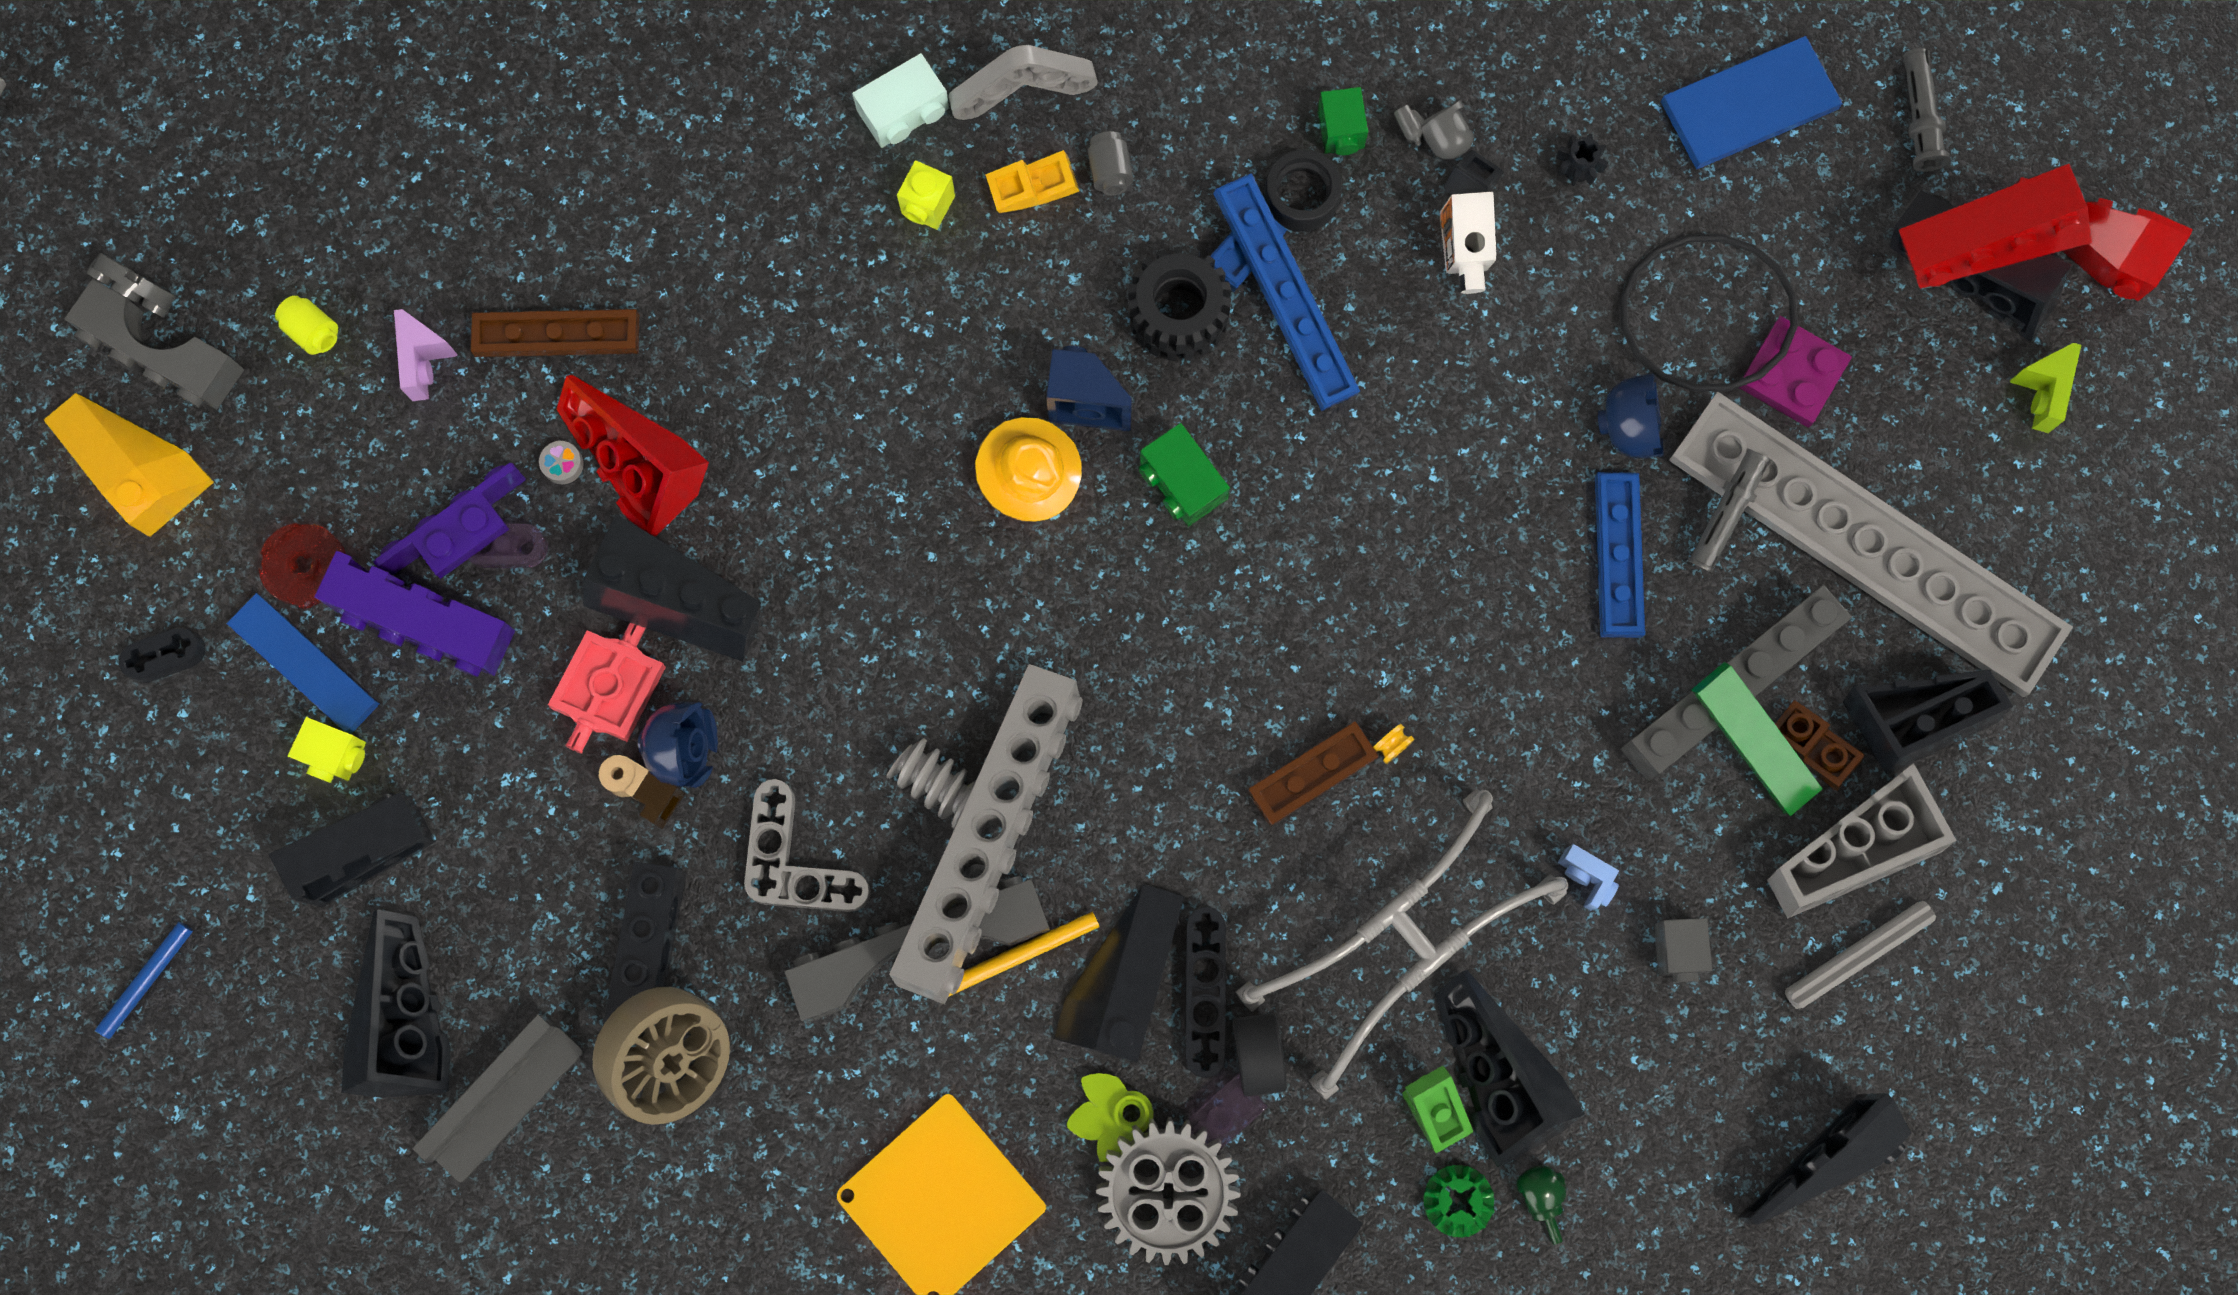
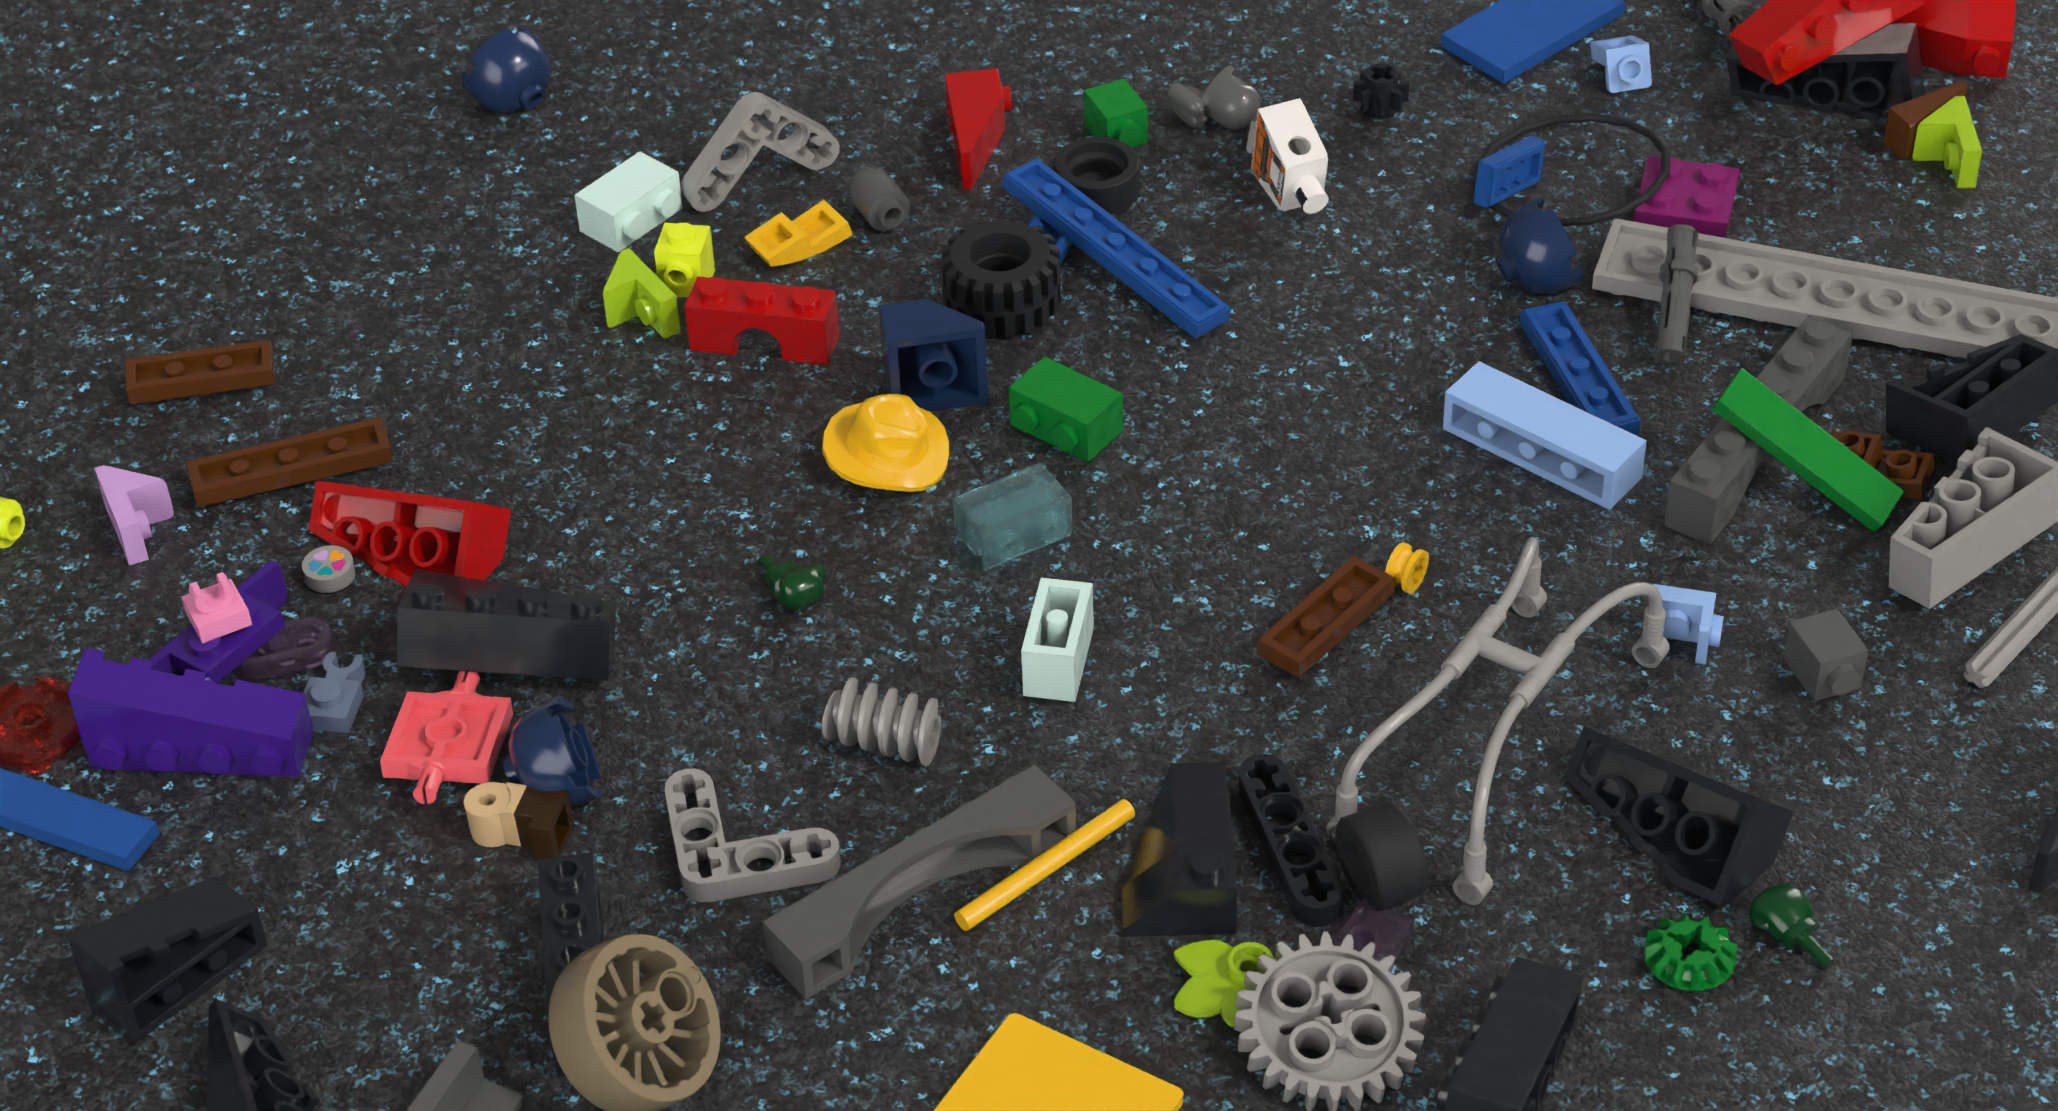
camera: 15 degrees left, 35 degrees down
(327, 751) = (106, 875): neon yellow brick -> none
(451, 521) = (216, 609): none -> bright pink tile
(506, 200) = (200, 372): none -> reddish brown plate
(533, 608) = (338, 696): none -> sand blue plate
(875, 218) = (637, 291): none -> lime slope
(911, 602) = (793, 584): none -> dark green piece
(989, 297) = (798, 317): none -> red arch
(1037, 694) = (965, 737): light grey brick -> none
(1092, 744) = (1057, 639): none -> light aqua brick
(1104, 587) = (1013, 515): none -> clear light blue hinge
(1223, 86) = (976, 118): none -> red slope
(1438, 1109) = (1620, 862): bright green slope -> none
(1559, 629) = (1544, 435): none -> light blue brick
(1650, 306) = (1509, 171): none -> blue plate
(1808, 182) = (1624, 61): none -> light blue bracket
(2027, 349) = (1905, 118): none -> reddish brown slope

